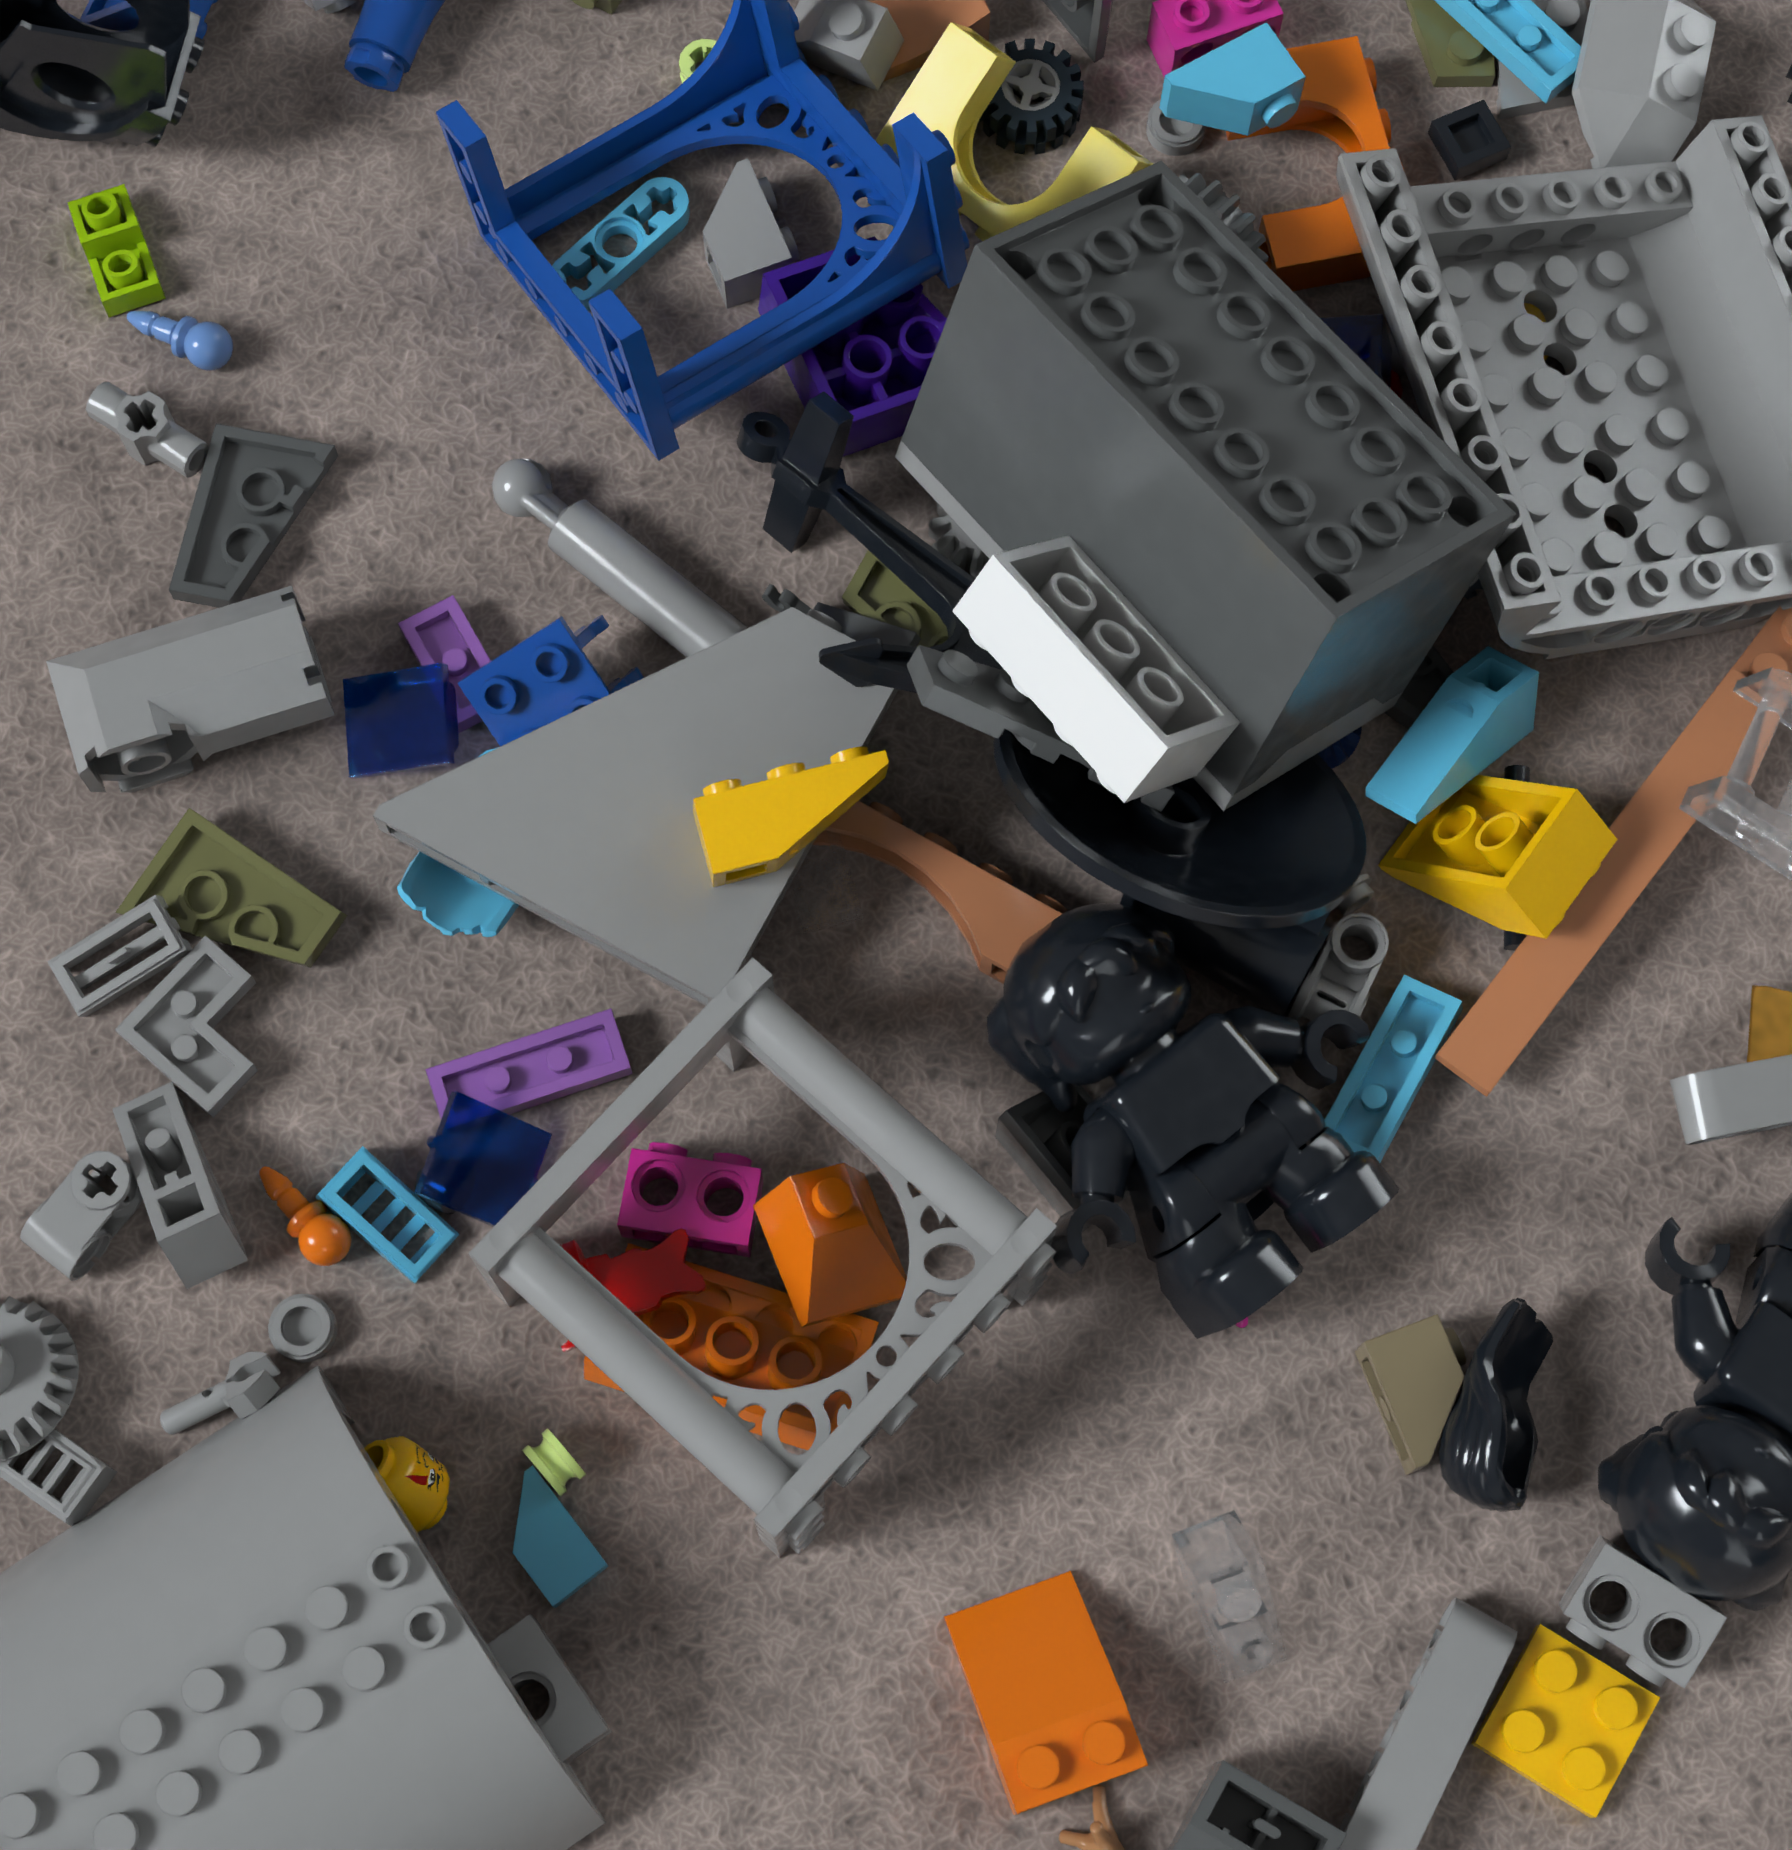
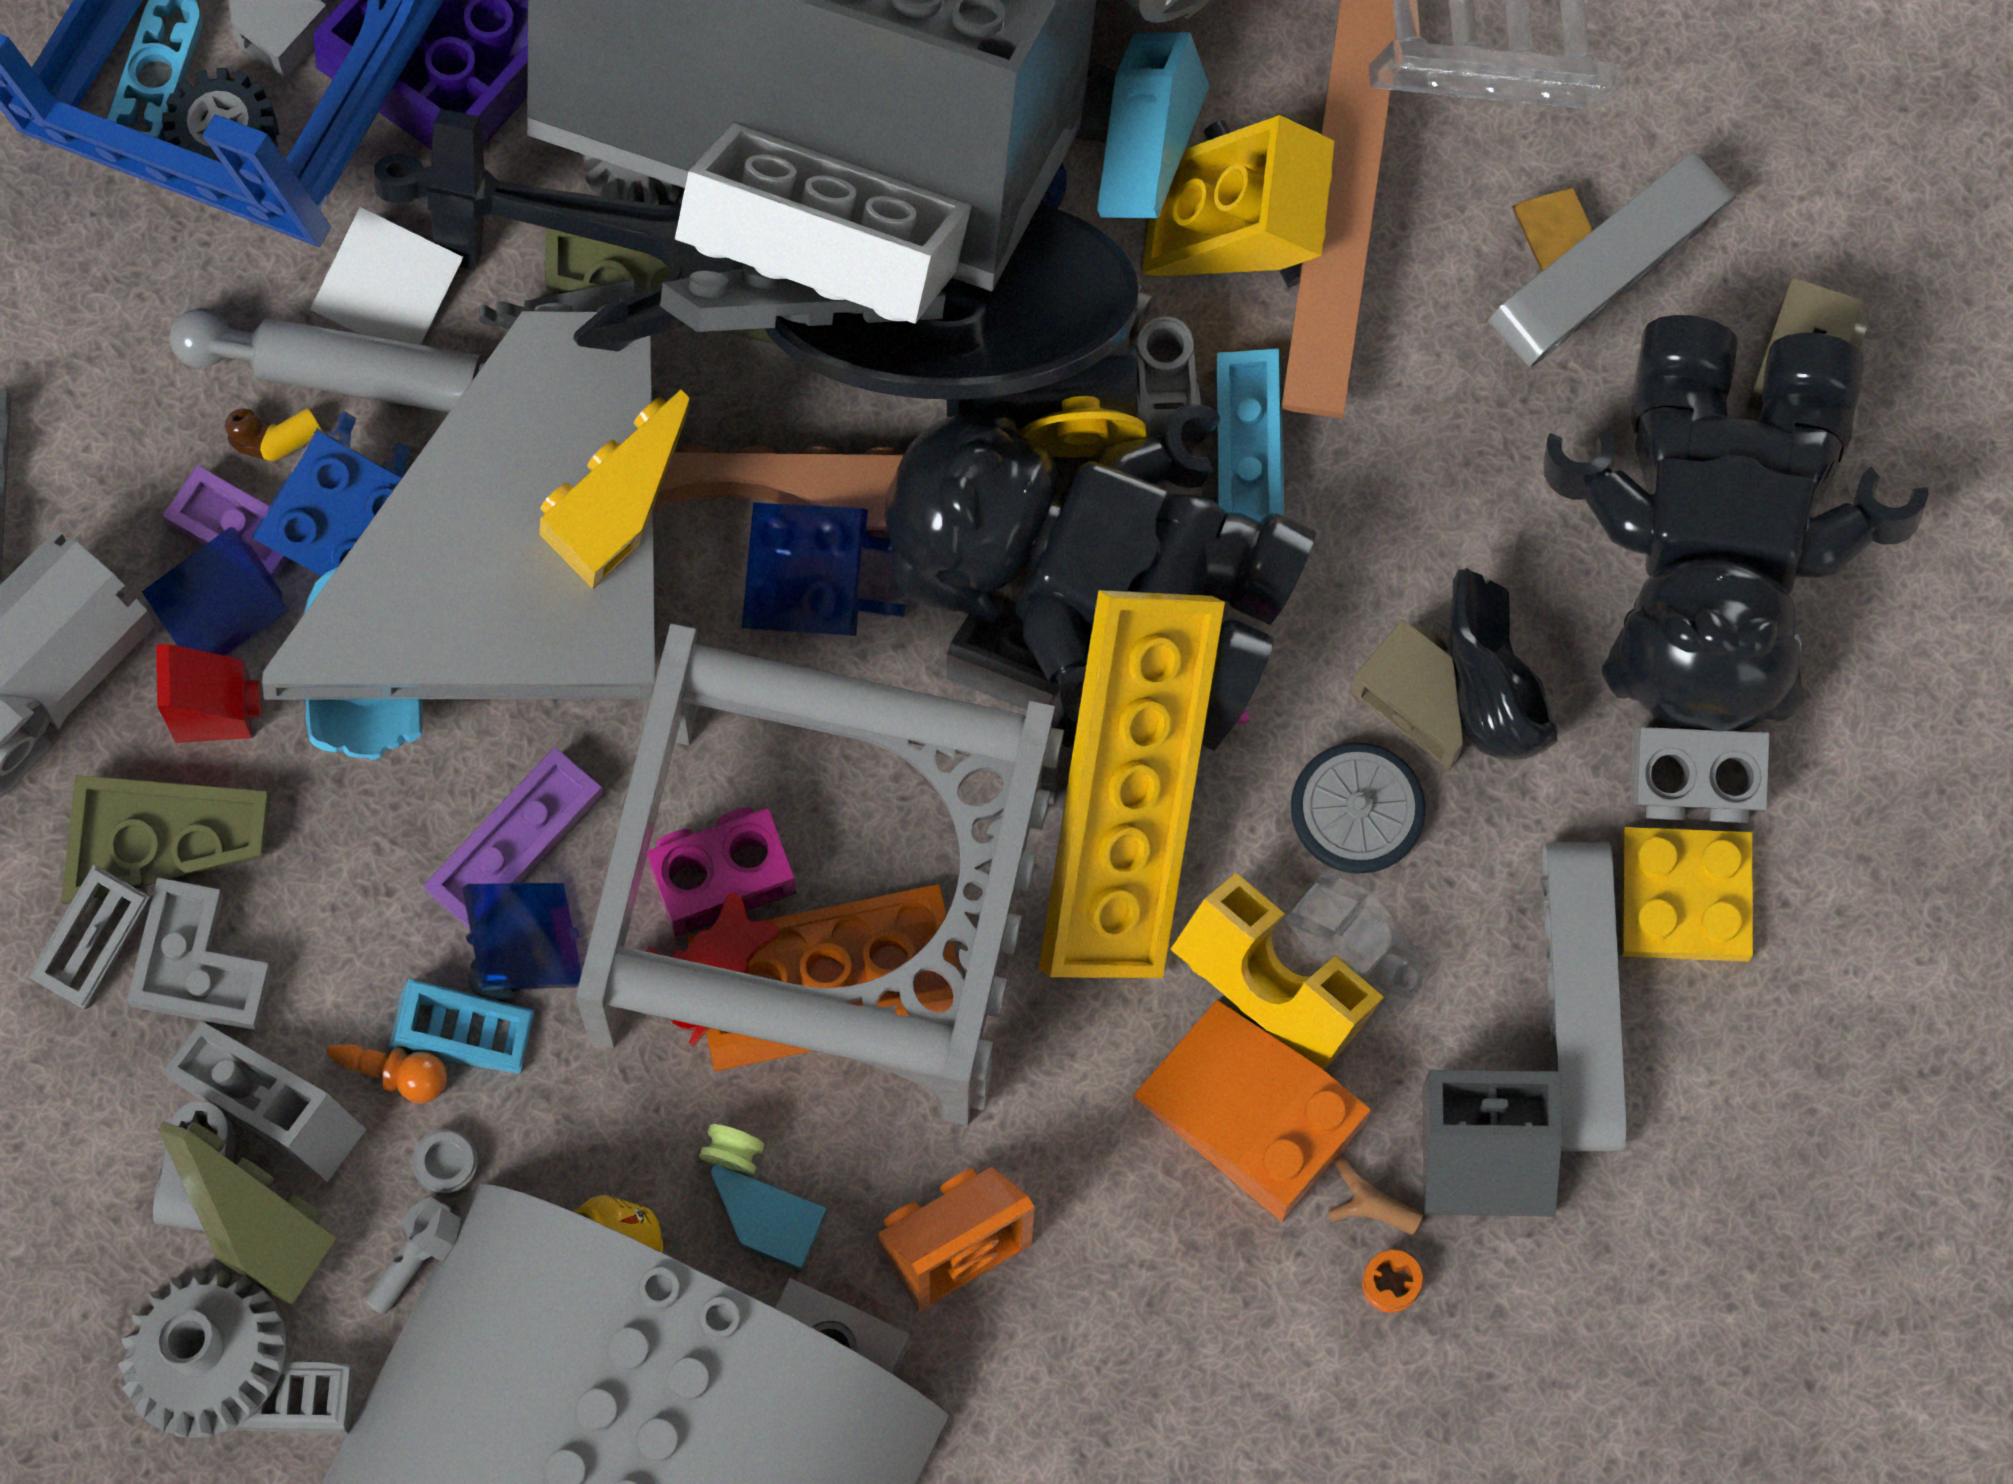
camera: 30 degrees left, 0 degrees up
(95, 1299) = (244, 1220): none -> olive slope
(333, 795) = (205, 695): none -> red slope
(528, 605) = (267, 440): none -> arm
(660, 298) = (221, 96): none -> black wheel
(700, 1658) = (958, 1235): none -> orange slope
(709, 522) = (386, 280): none -> white sticker
(830, 1244) = (862, 840): orange slope -> none
(922, 973) = (808, 569): none -> clear blue plate
(1093, 1333) = (1131, 785): none -> yellow plate
(1109, 1542) = (1234, 951): none -> yellow arch
(1235, 978) = (1082, 428): none -> yellow dish
(1300, 1465) = (1358, 807): none -> light grey wheel

